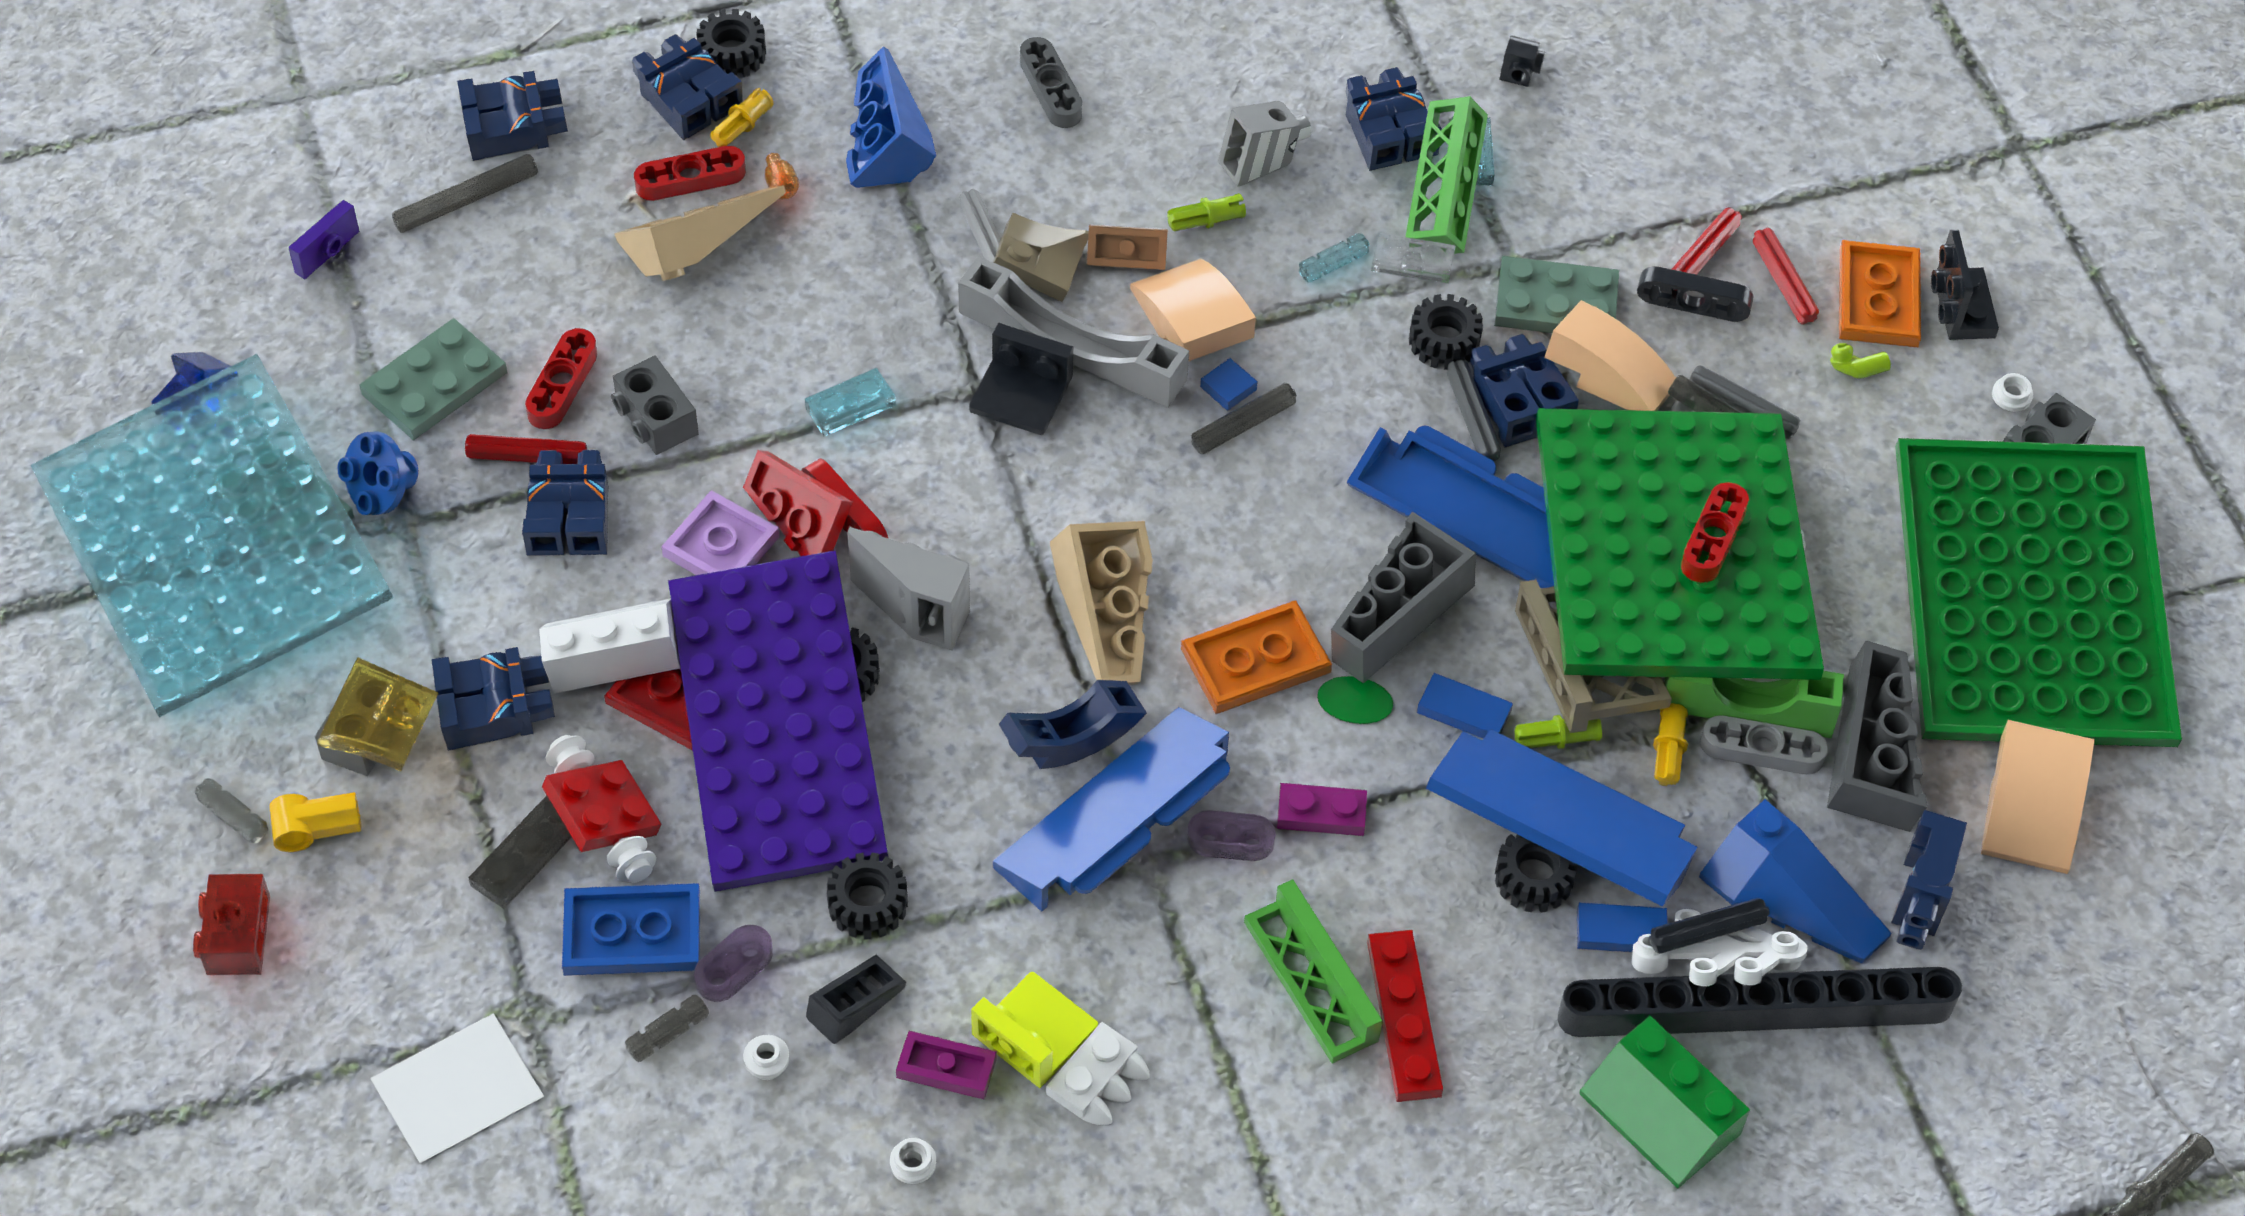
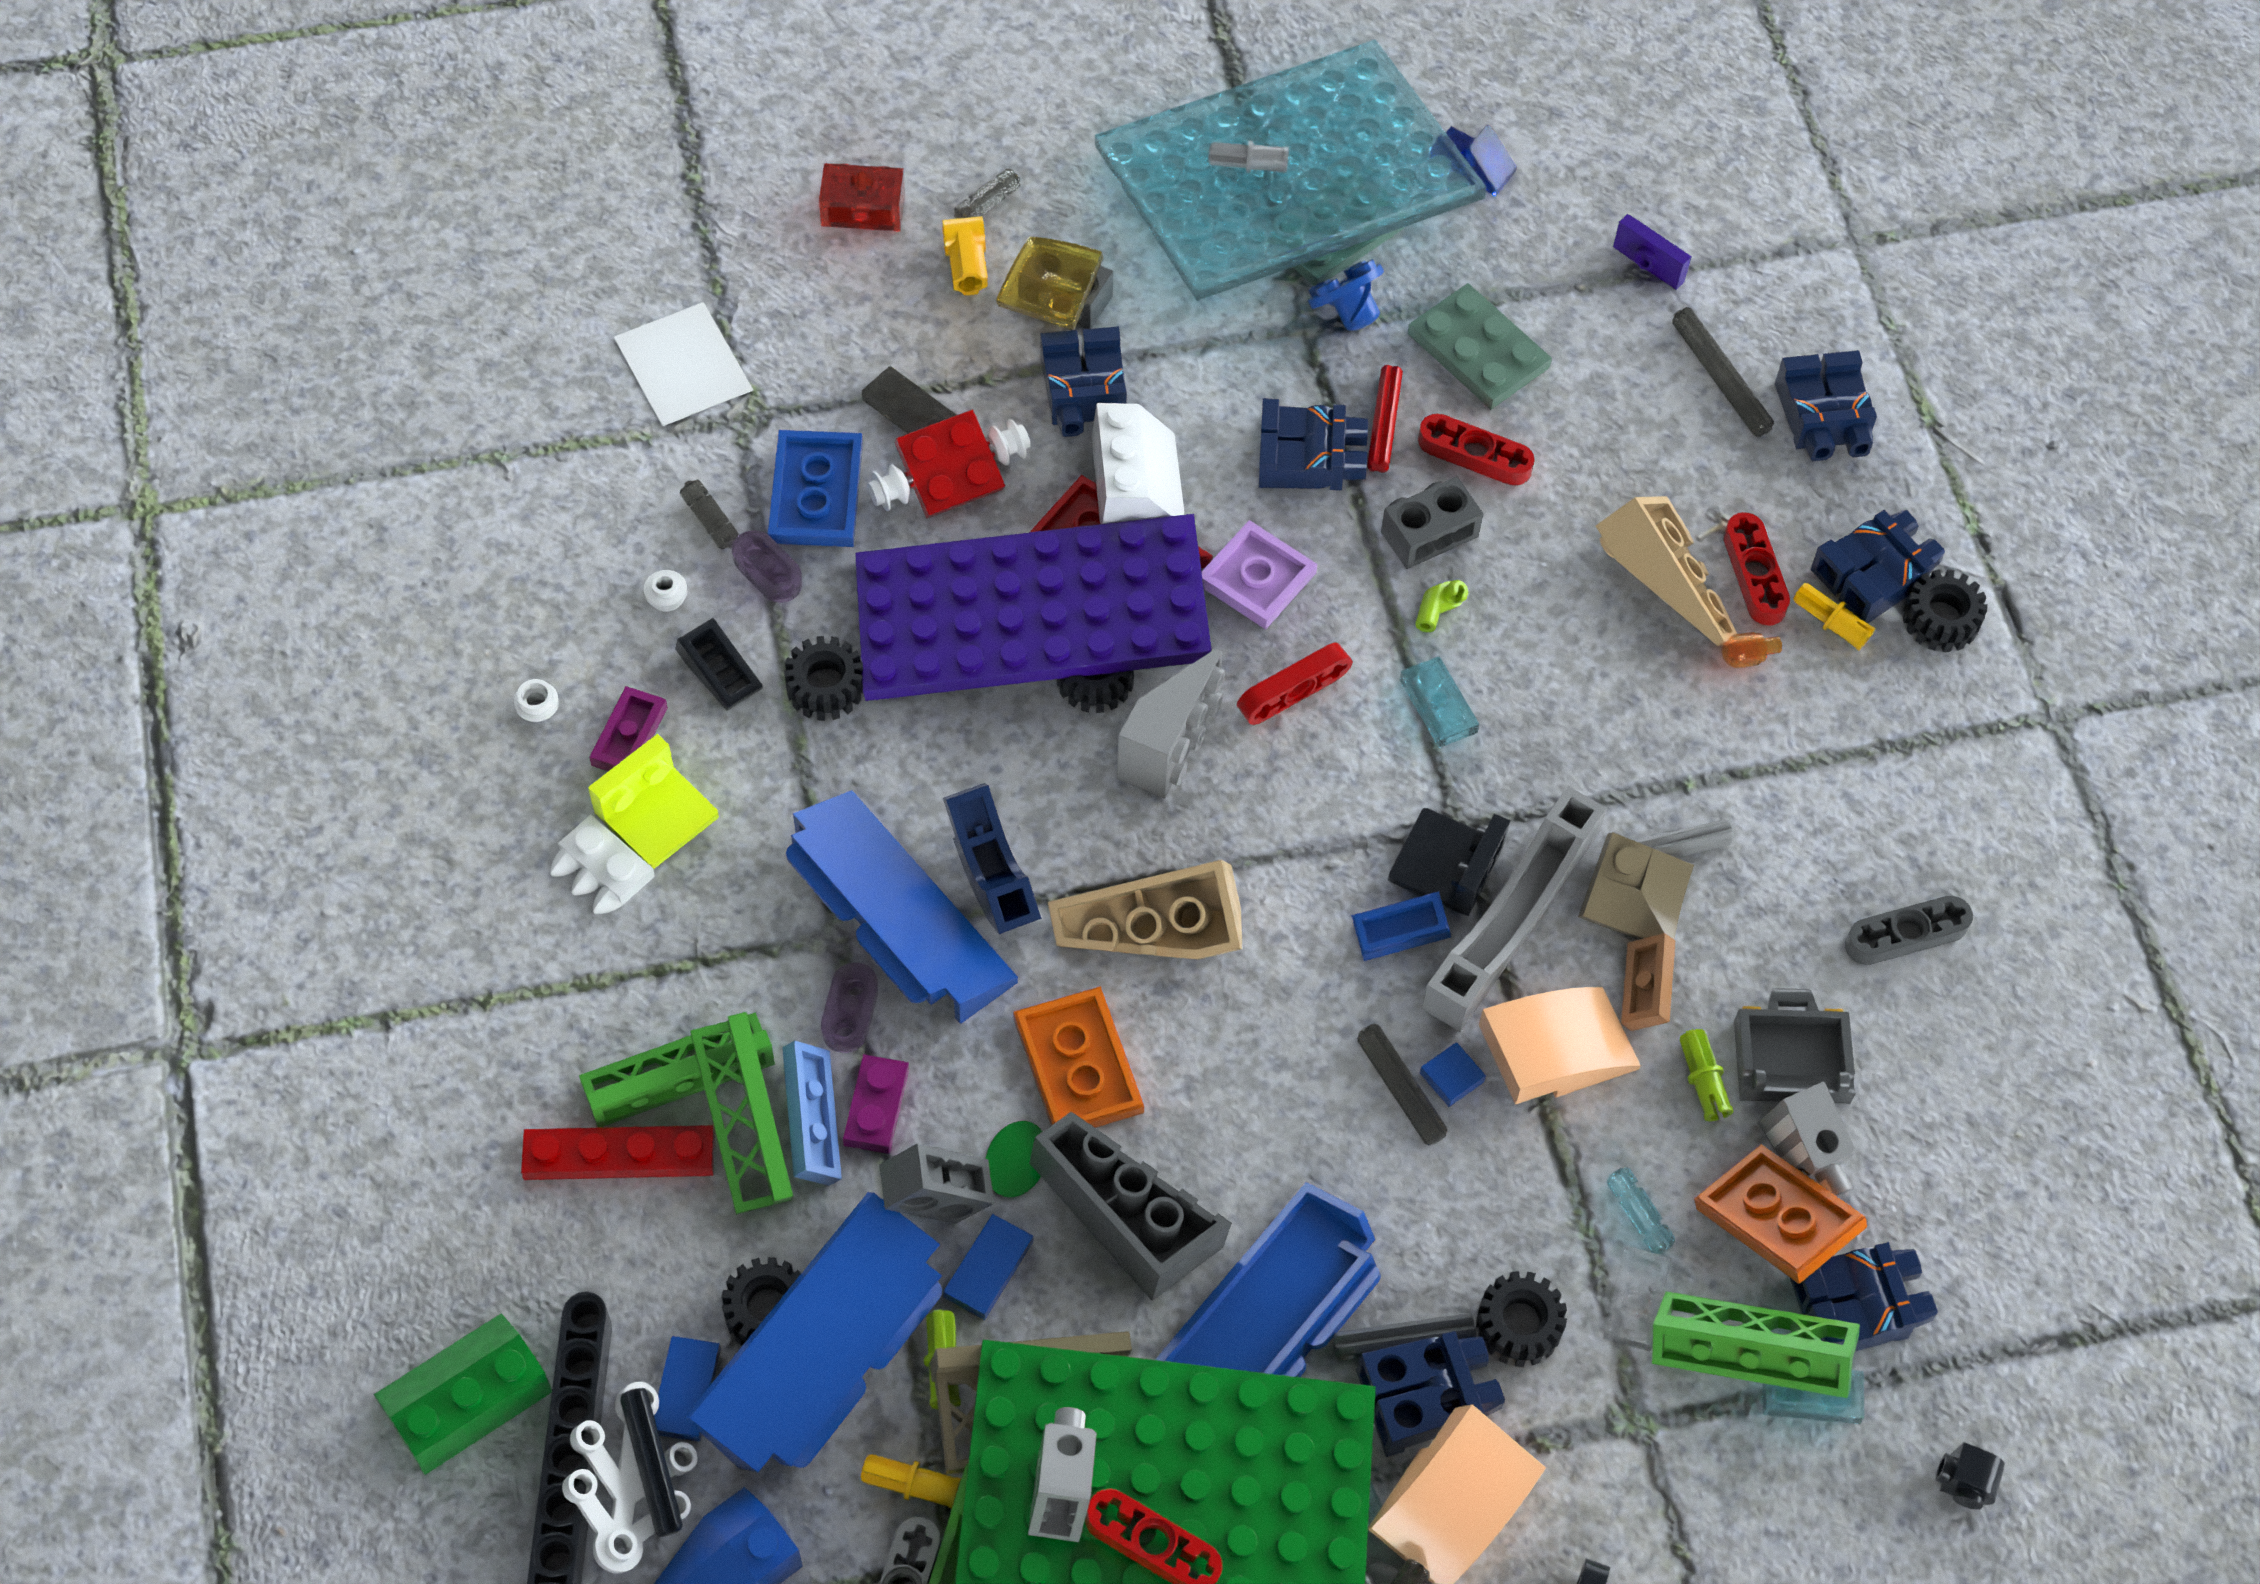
camera: 95 degrees right, 5 degrees up
(209, 552) = (1249, 156): none -> light grey axle
(739, 404) = (1439, 600): none -> lime arm
(797, 503) = (1301, 635): wing -> none
(890, 130) = (1802, 759): blue wedge -> none
(1092, 420) = (1401, 926): none -> blue tile
(1176, 156) = (1793, 1048): none -> dark grey piece
(1330, 160) = (1780, 1213): none -> orange tile
(1345, 854) = (811, 1113): none -> medium blue plate
(1356, 884) = (759, 1108): none -> bright green fence
(1413, 732) = (936, 1183): none -> dark grey brick
(1542, 293) = (1588, 1457): sand green plate -> none
(1688, 577) = (1063, 1477): none -> light grey torso

